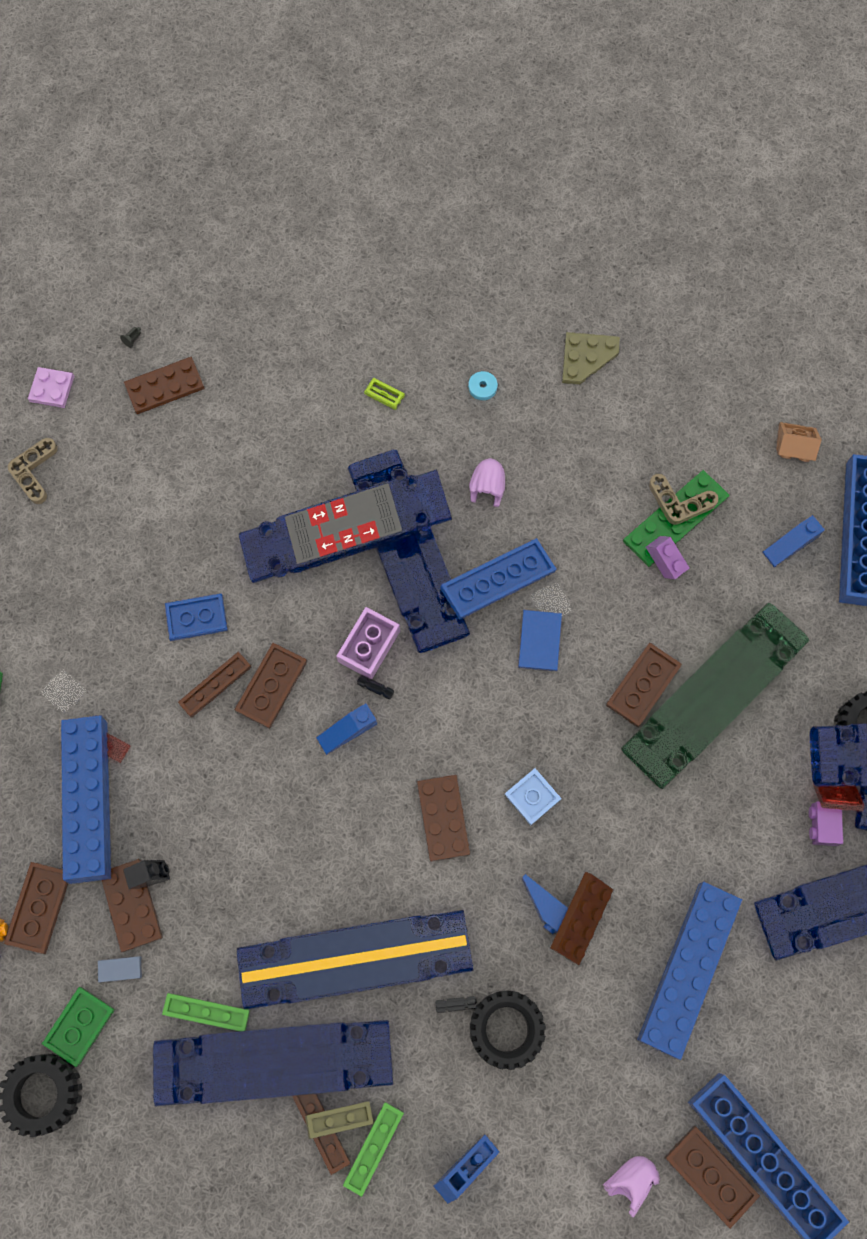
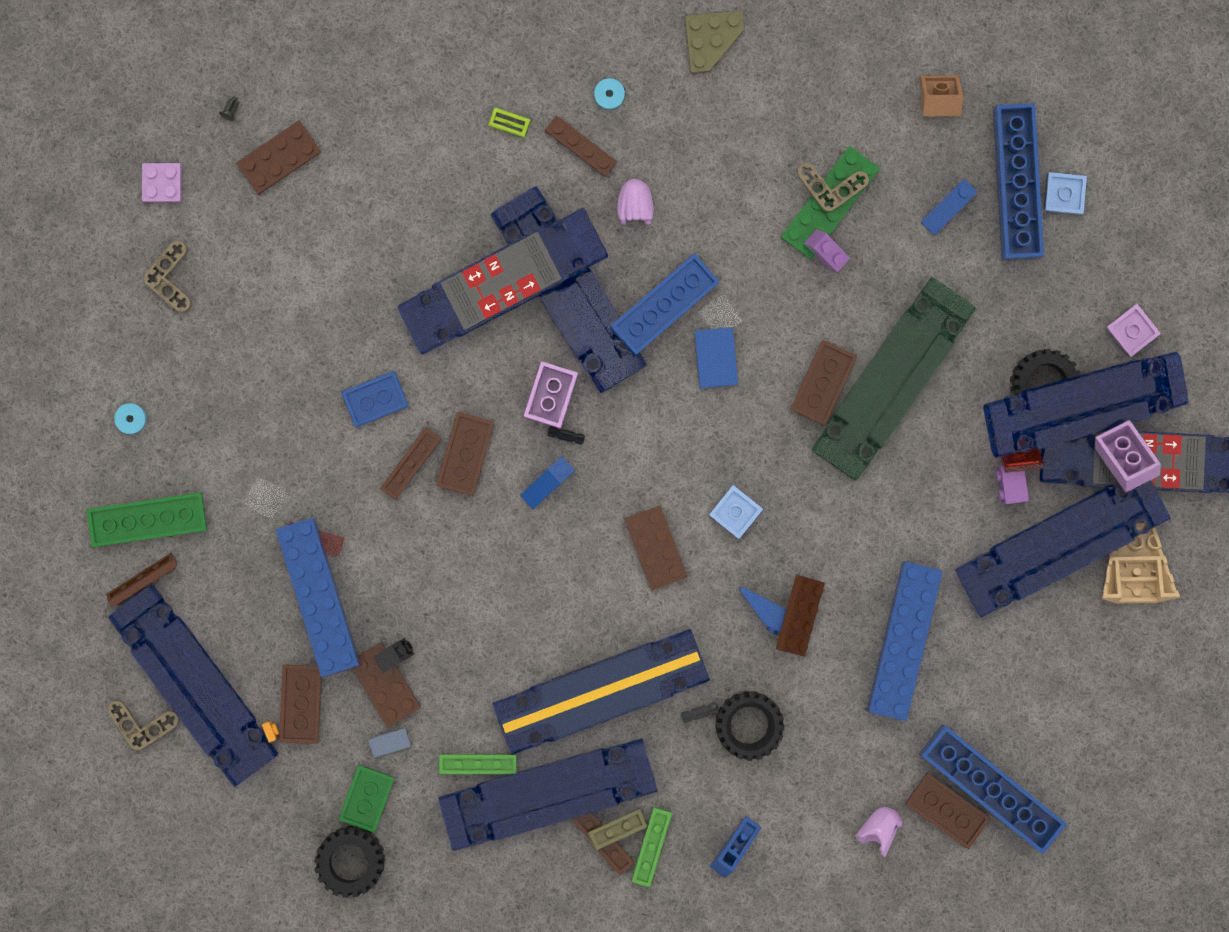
camera: 20 degrees left, 15 degrees up
(447, 425) = (580, 146): none -> reddish brown plate

